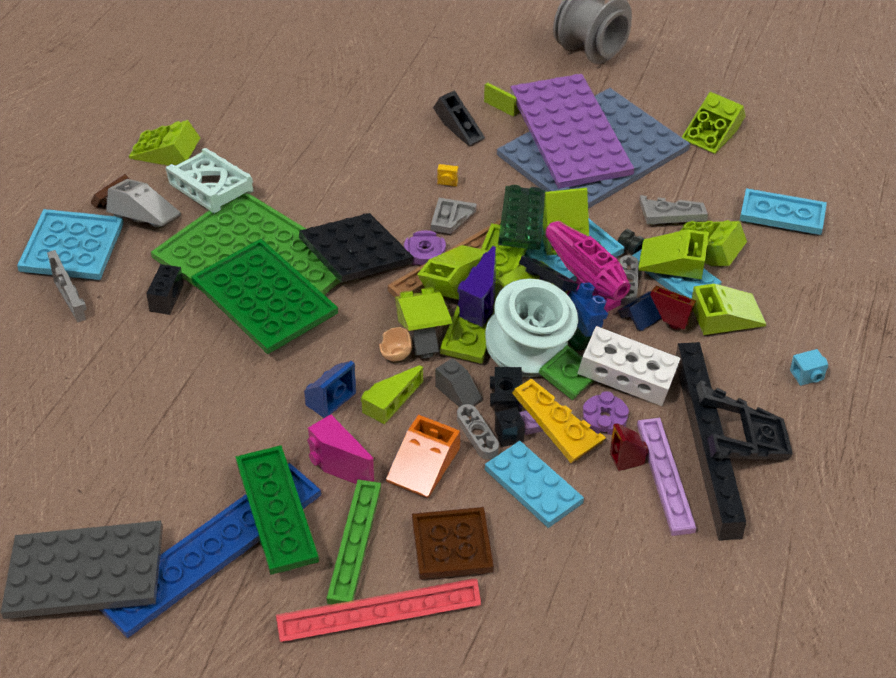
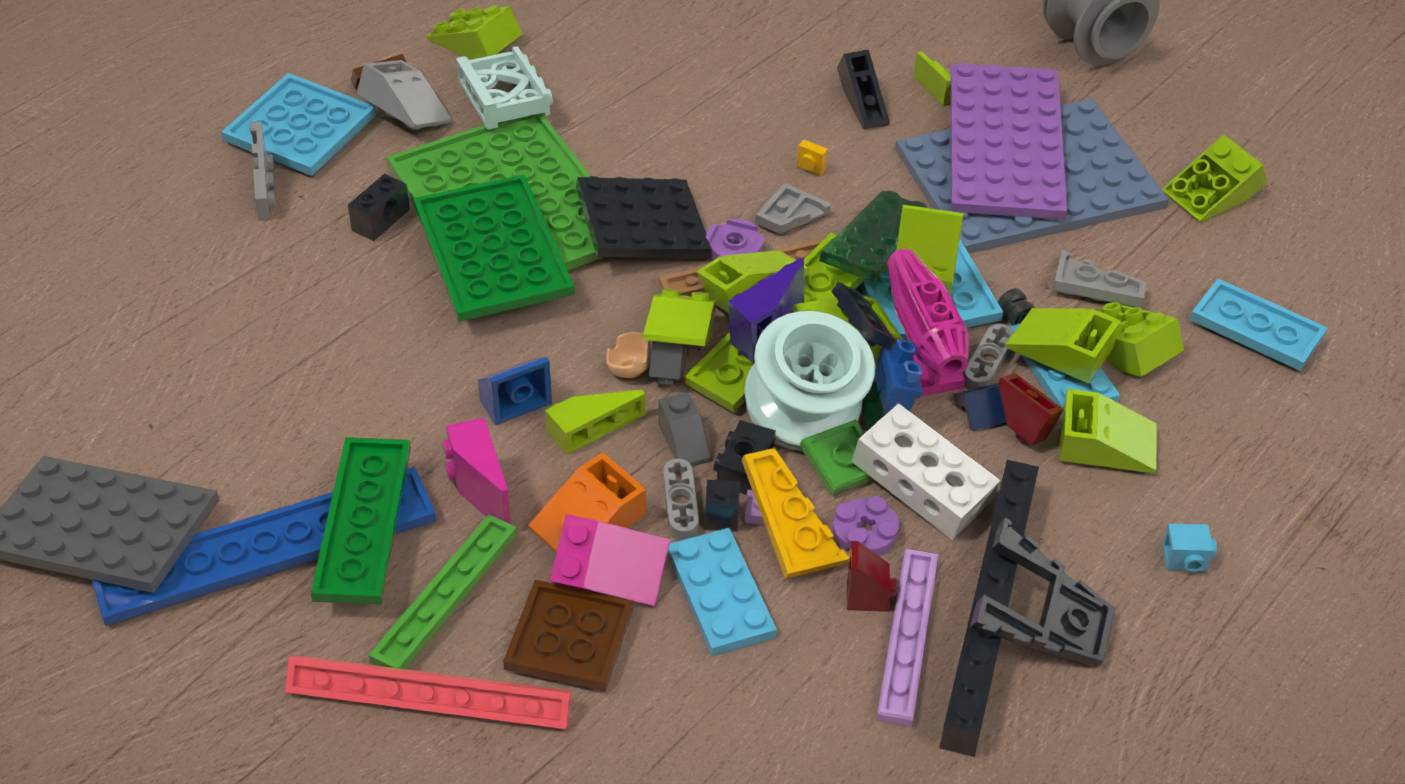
camera: 20 degrees right, 0 degrees up
(457, 484) = (610, 560): none -> slope

